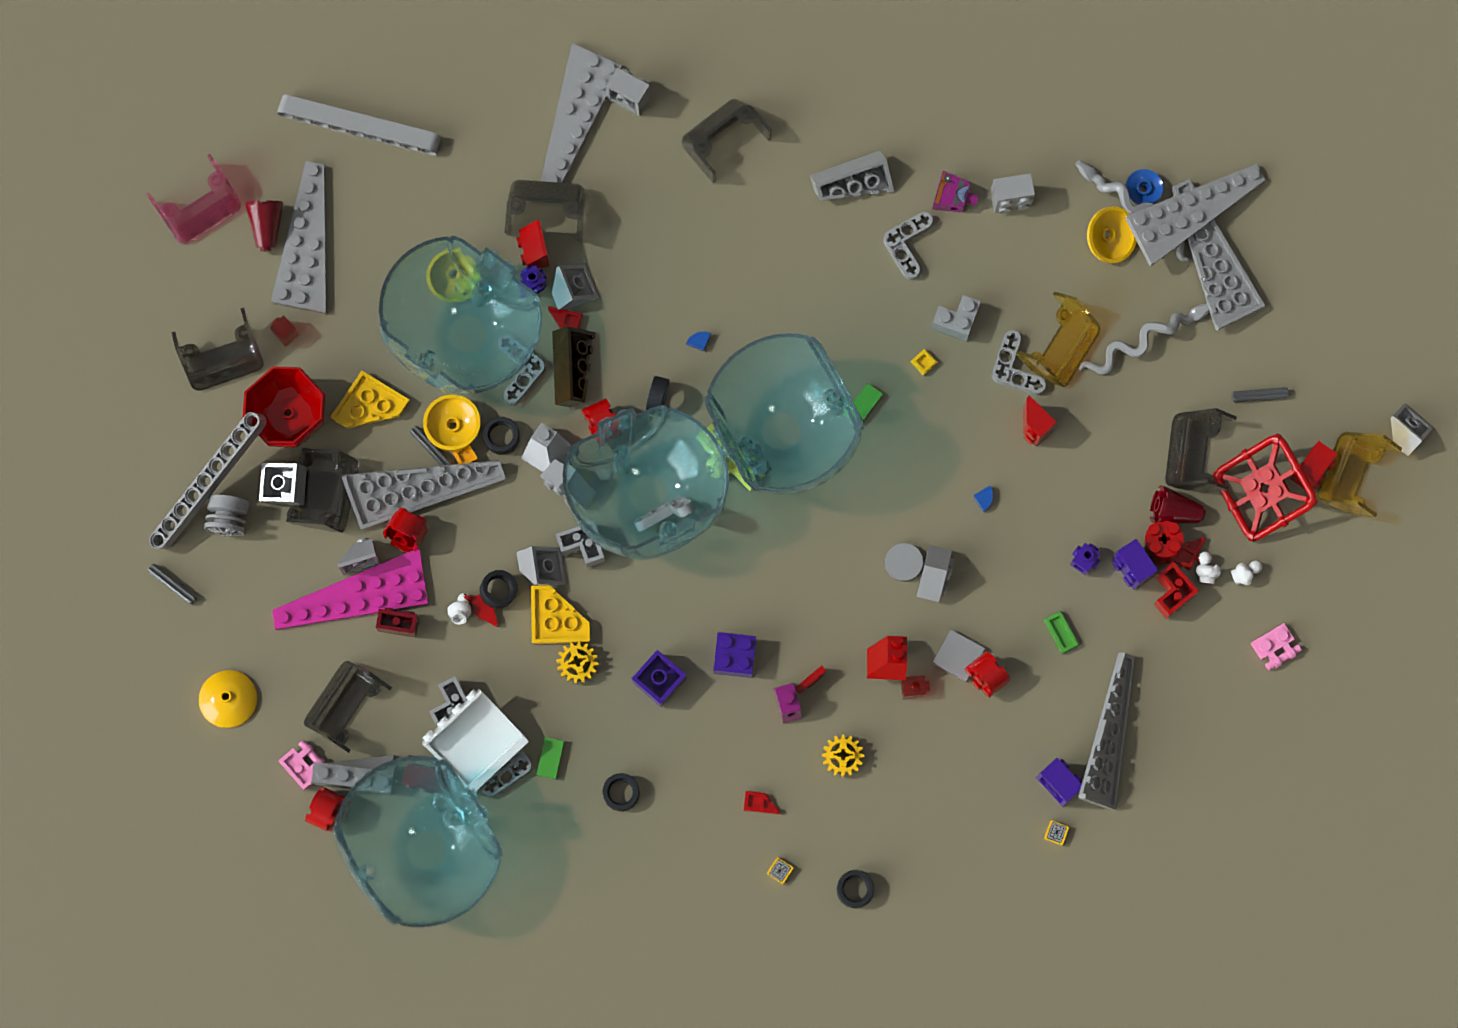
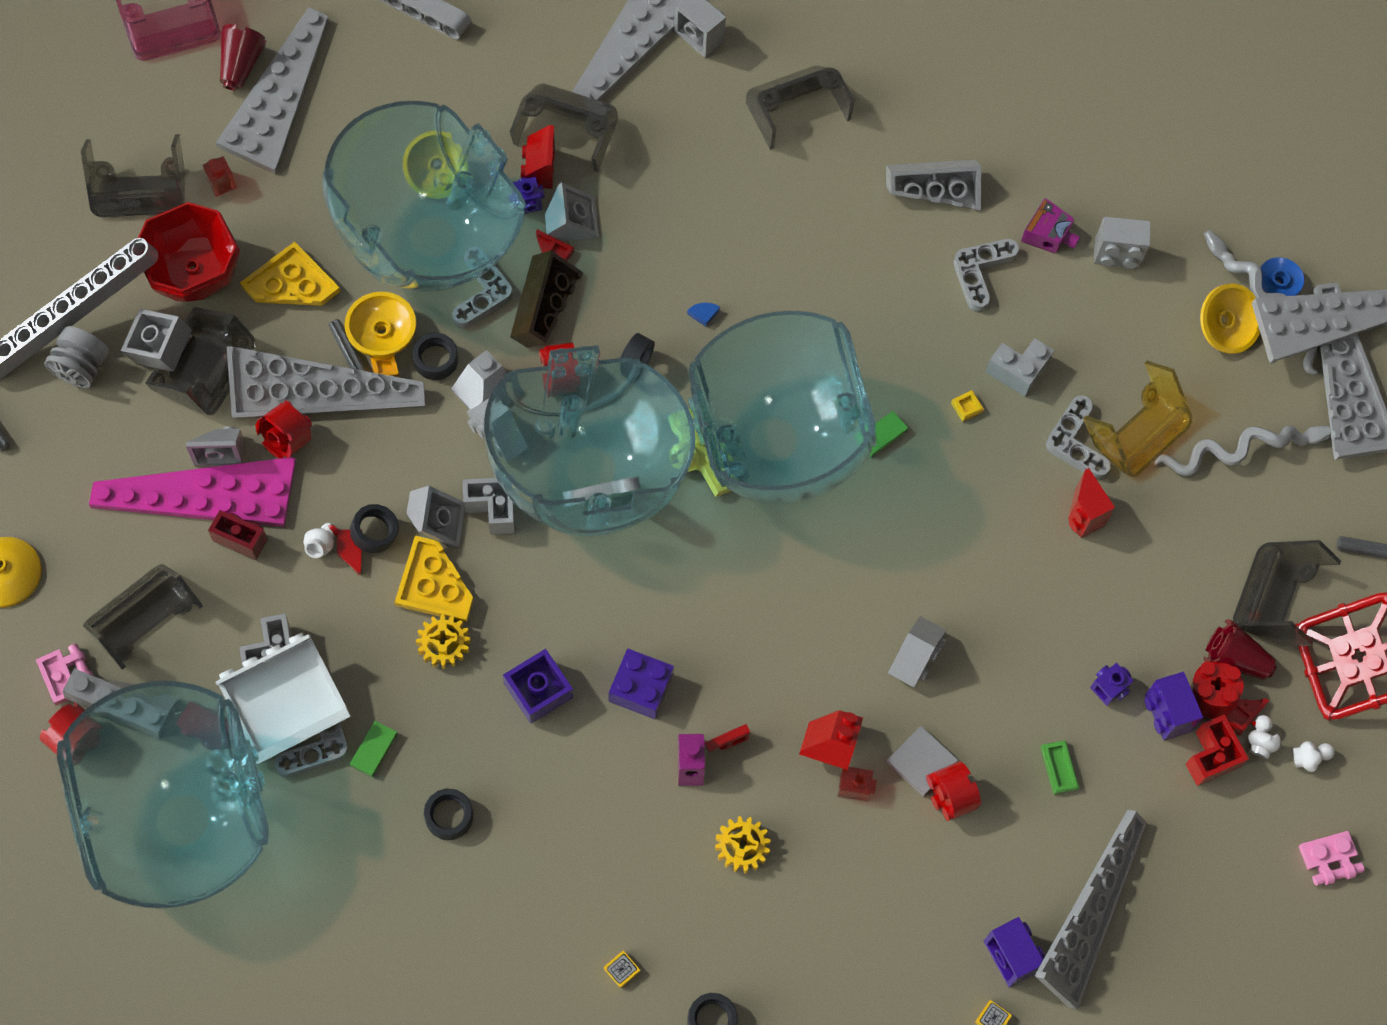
camera: 10 degrees right, 10 degrees down
(759, 803) = (620, 876): red tile -> none
(903, 562) = (882, 630): light grey tile -> none
(984, 498) = (1002, 580): blue tile -> none

